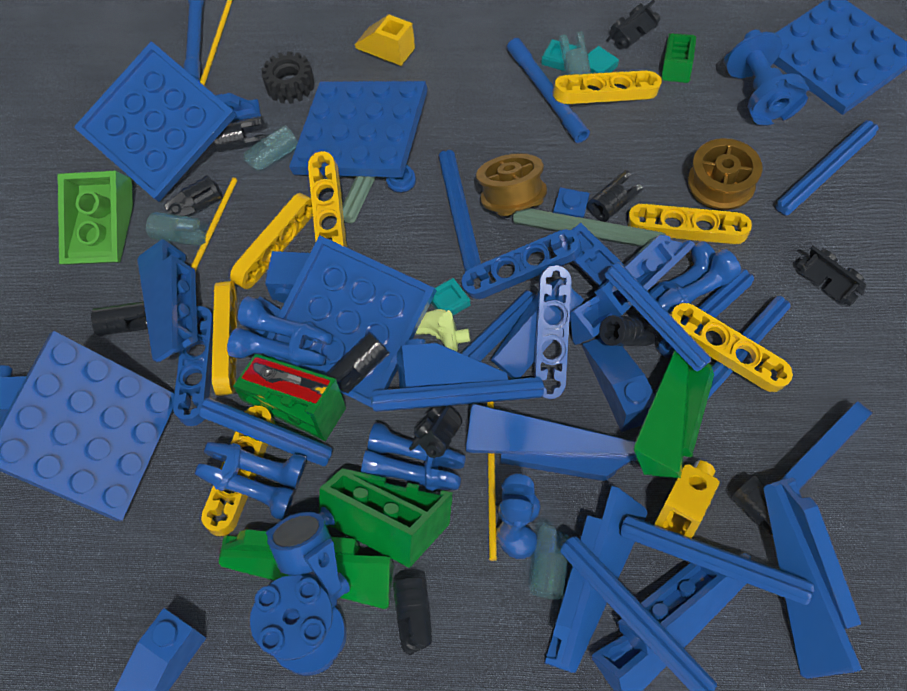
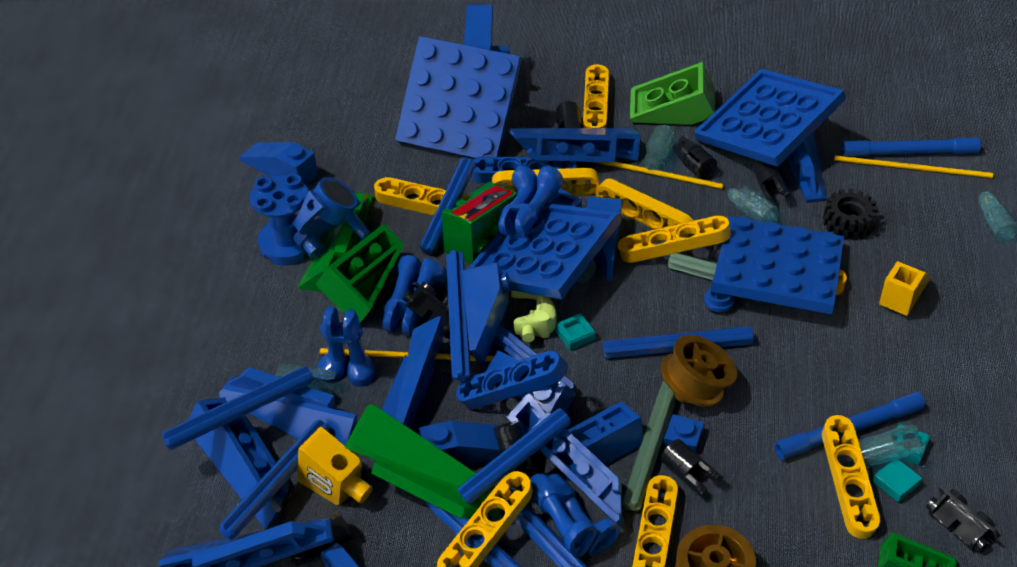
camera: 90 degrees right, 15 degrees down
(79, 292) = (596, 100): none -> yellow beam
(227, 478) = (412, 182): blue piece -> none
(358, 362) = (499, 250): black hinge -> none
(412, 614) = (285, 294): black hinge -> none
(519, 259) = (599, 375): blue beam -> none

